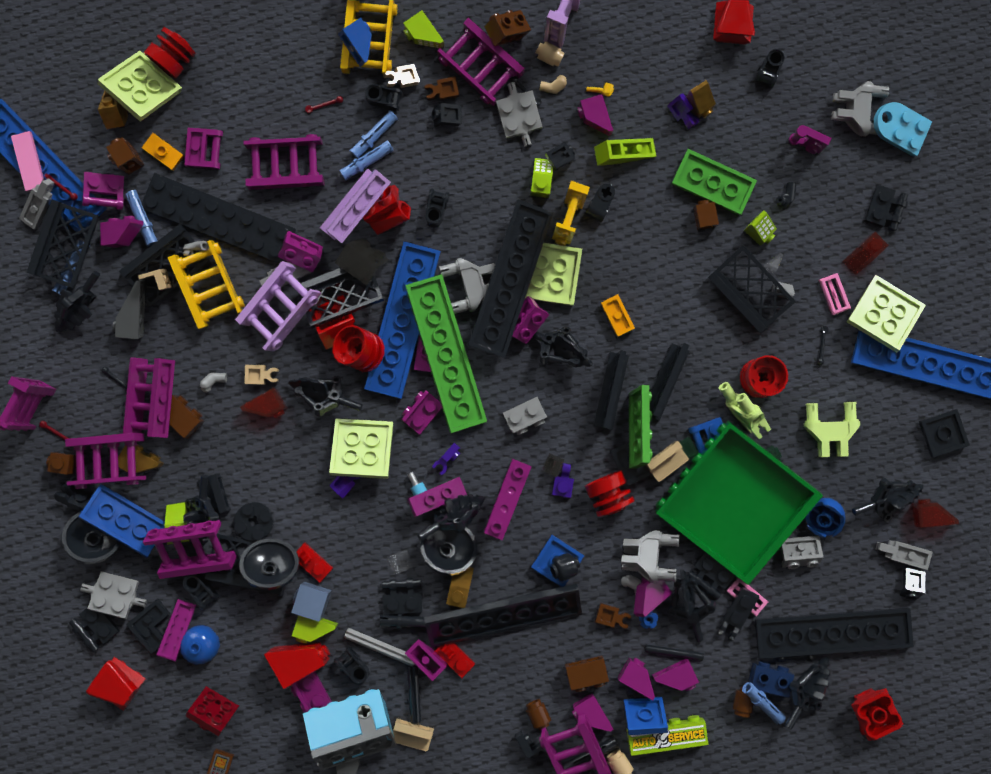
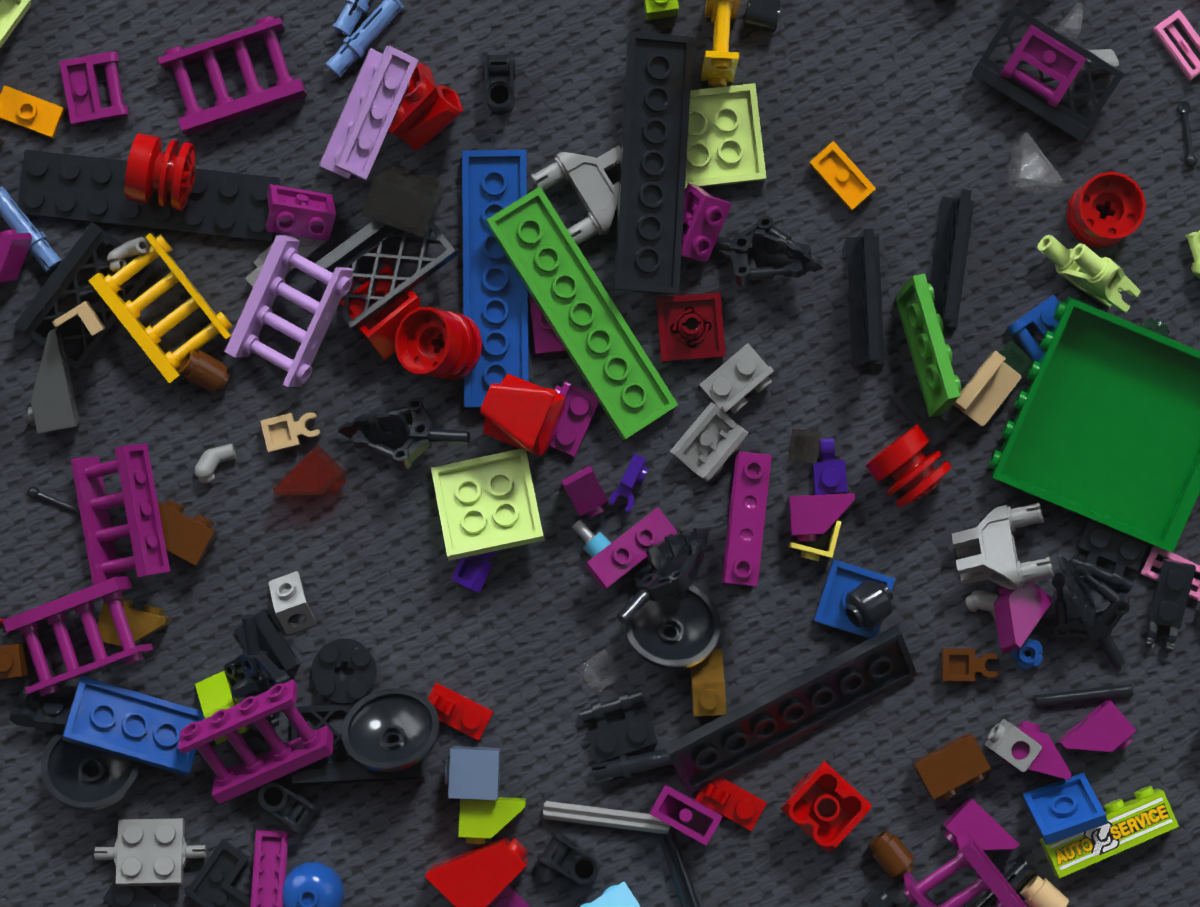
camera: 10 degrees left, 0 degrees up
(221, 327) = (204, 371): none -> reddish brown brick
(225, 205) = (154, 171): none -> red wheel
(234, 472) = (290, 599): none -> light grey bracket
(395, 402) = (522, 413): none -> red piece
(419, 457) = (585, 492): none -> magenta slope
(499, 448) = (709, 442): none -> light grey bracket
(507, 677) = (825, 806): none -> red piece
(518, 370) = (672, 311): none -> dark red plate
(541, 528) = (813, 553): none -> light yellow bracket
(549, 505) = (815, 513): none -> magenta slope
(620, 666) = (1002, 739): none -> light grey bracket
(727, 342) = (1031, 170): none -> clear slope
(755, 280) = (1047, 56): none -> magenta plate

